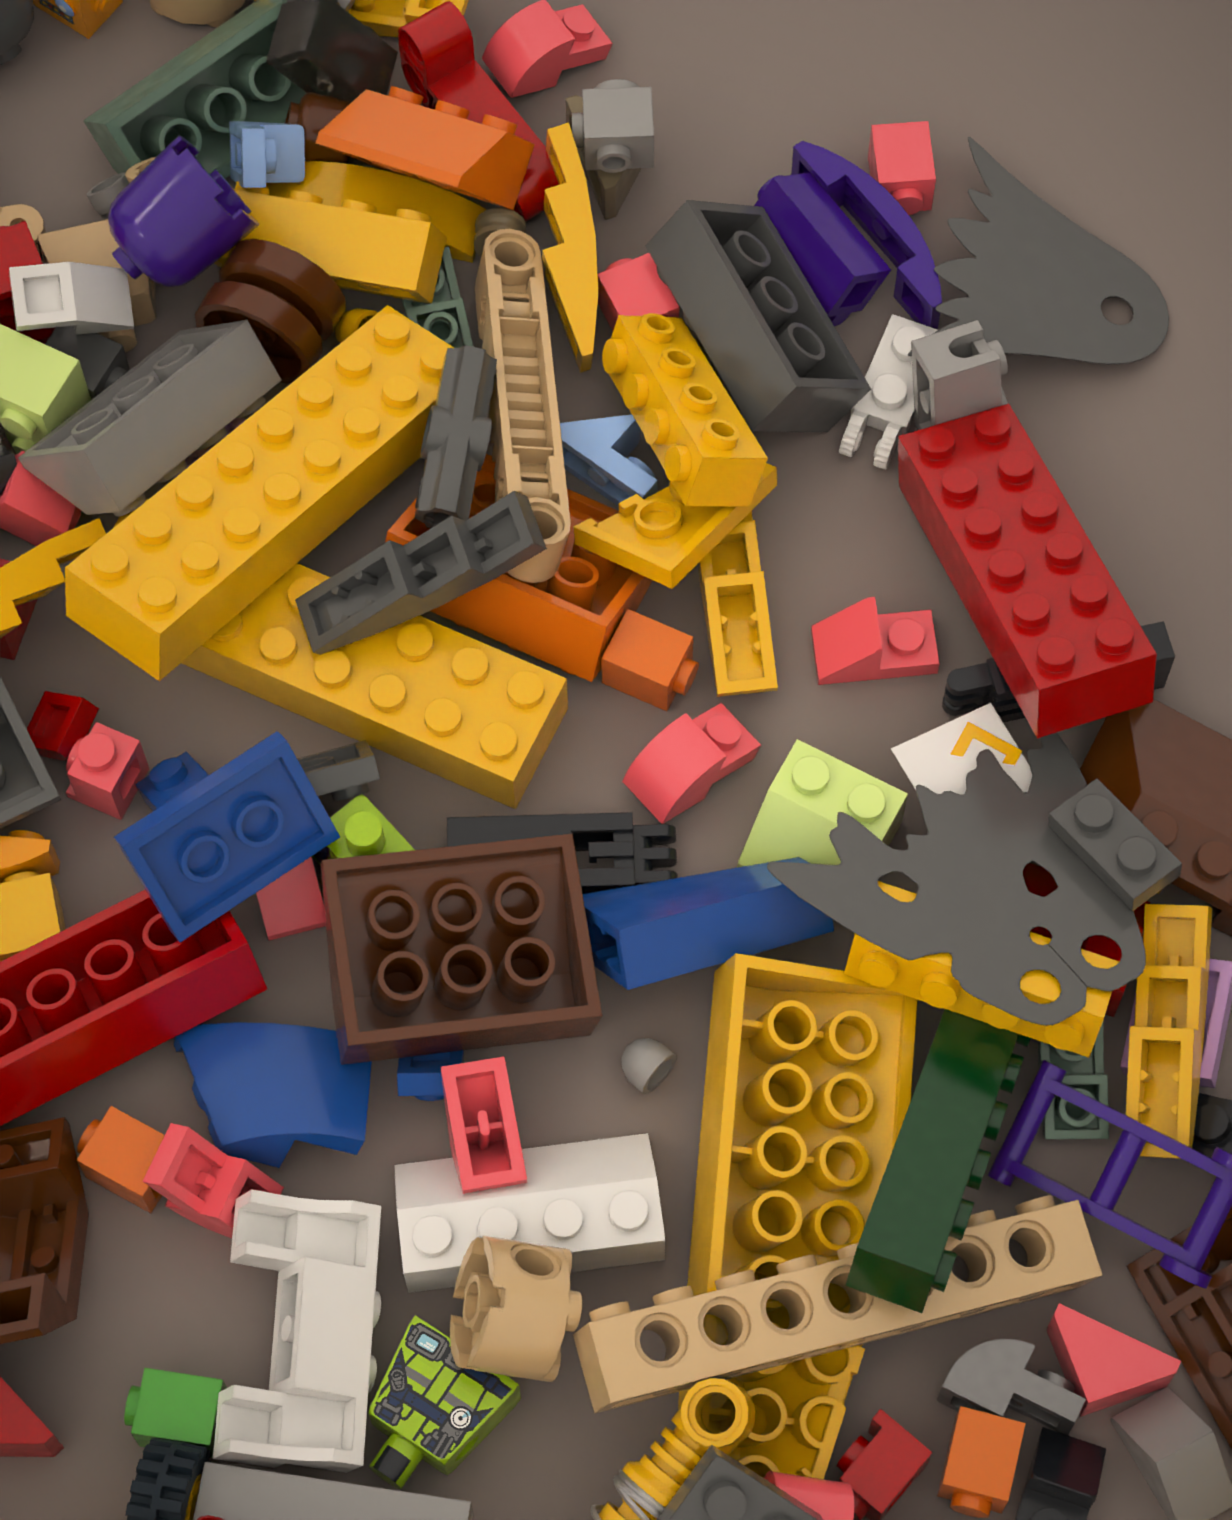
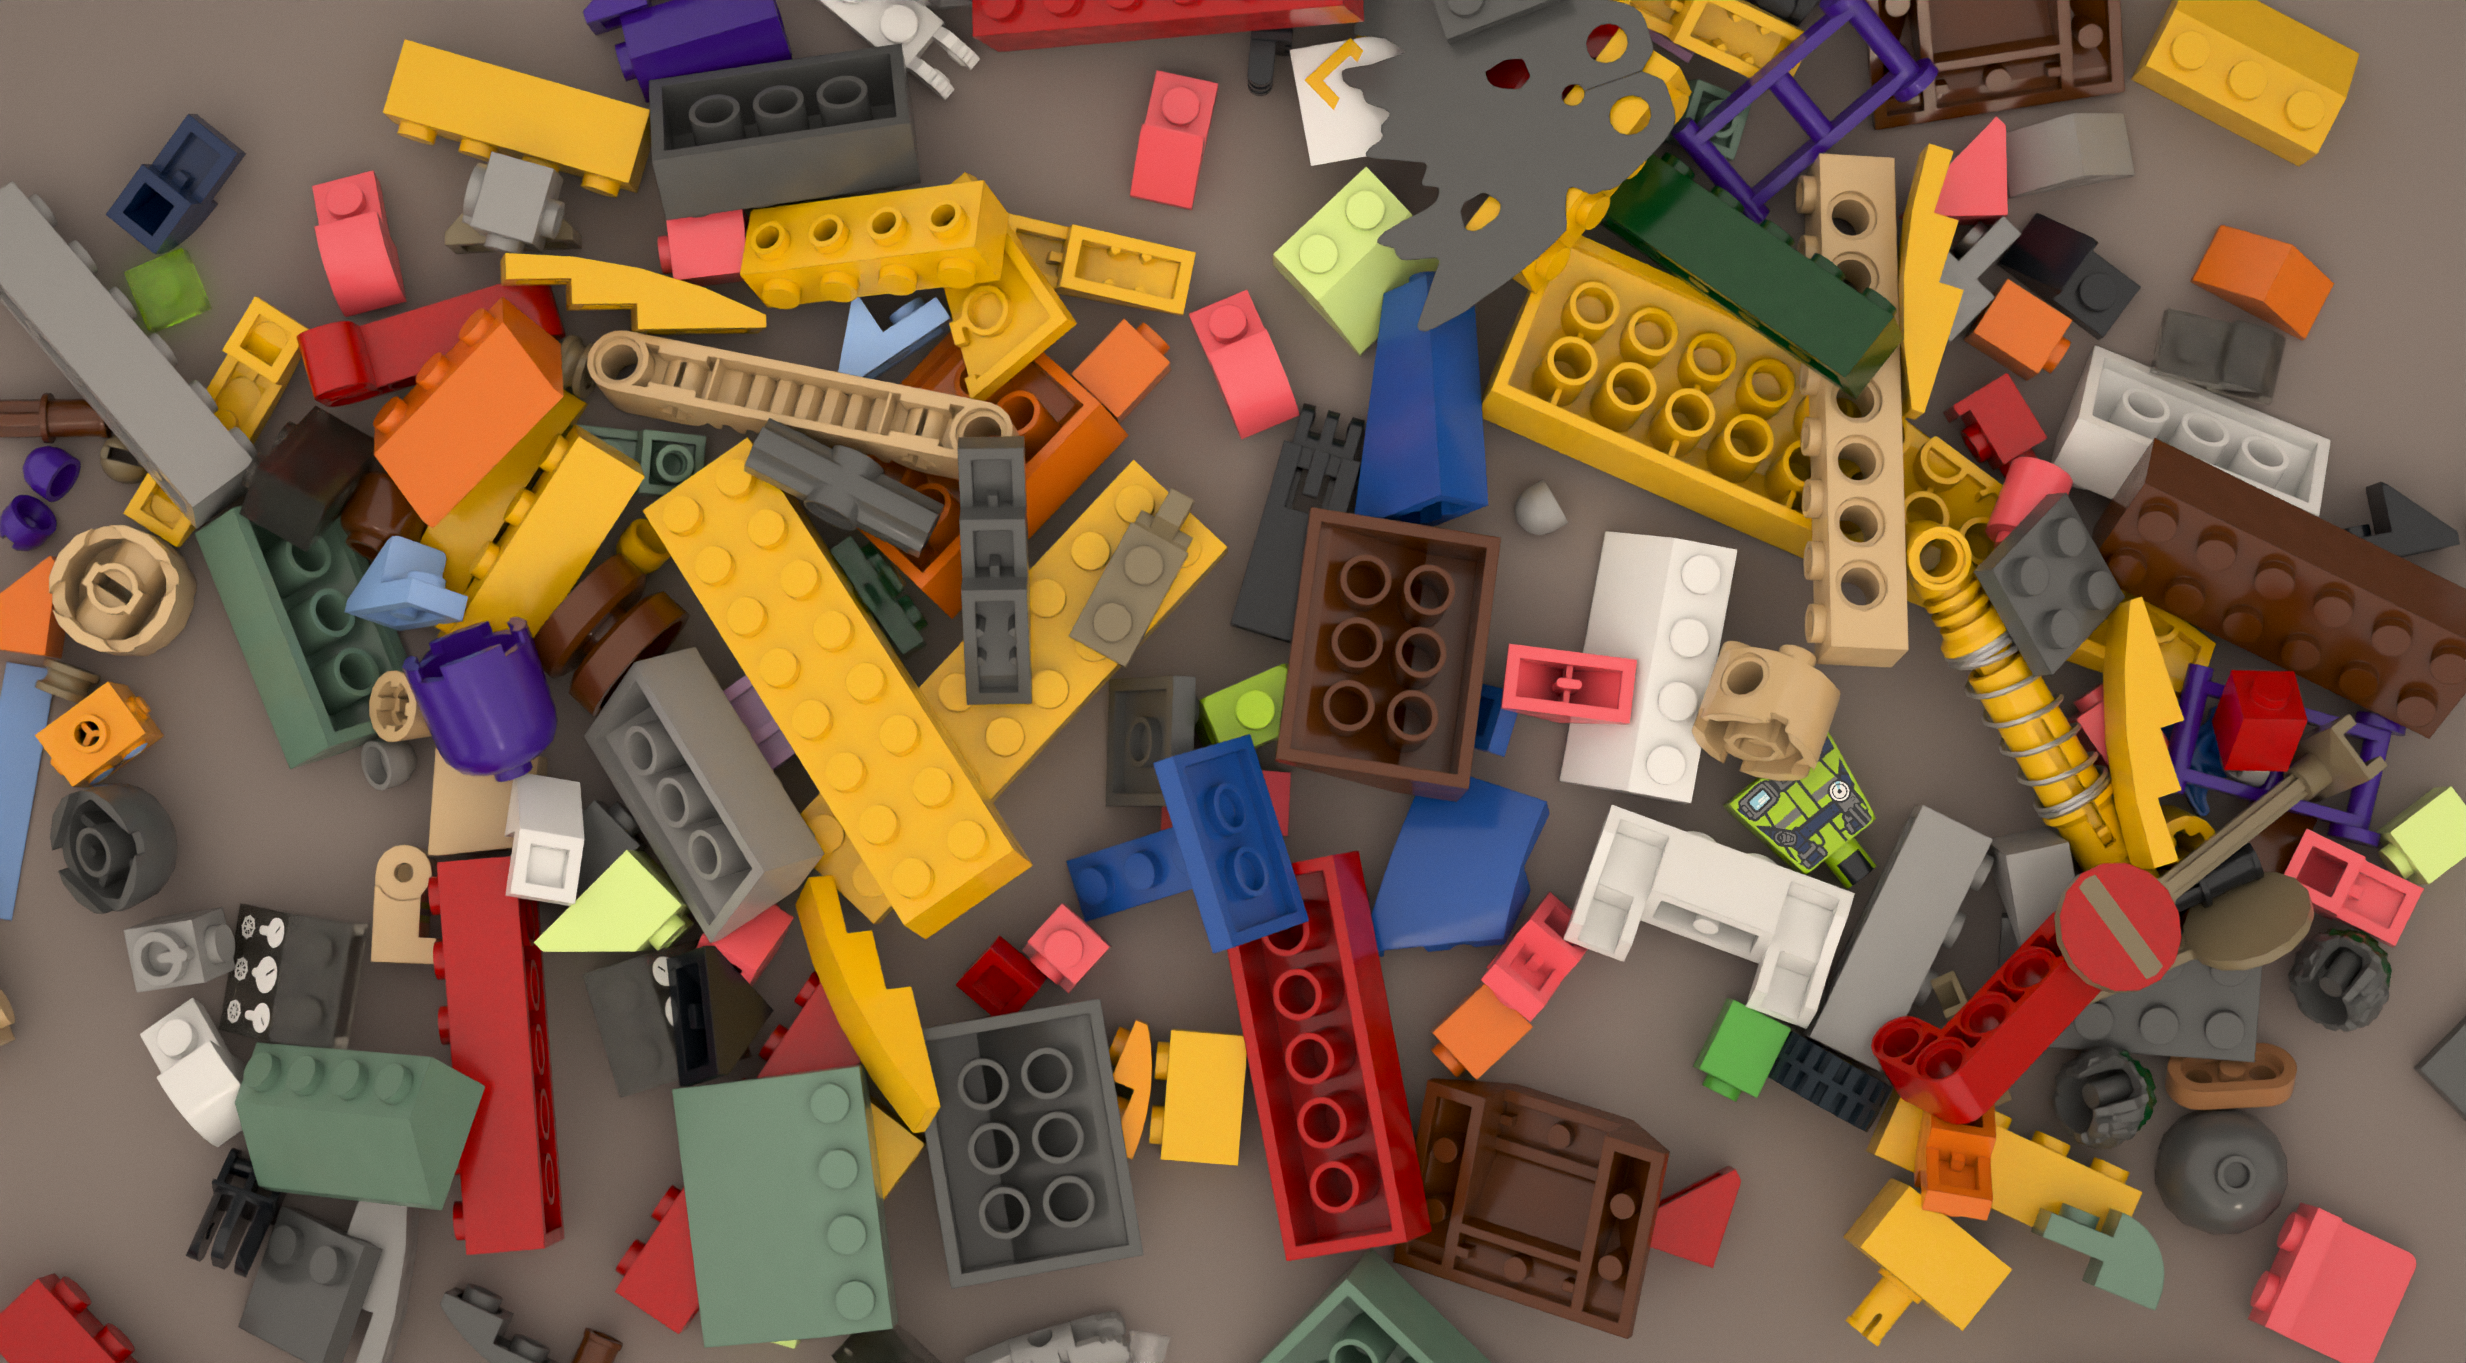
camera: 70 degrees left, 20 degrees up
(376, 514) = (876, 592): none -> clear green plate
(454, 704) = (1136, 581): none -> dark tan hinge
(693, 112) = (518, 117): none -> yellow brick
(964, 1336) = (1925, 304): none -> yellow slope

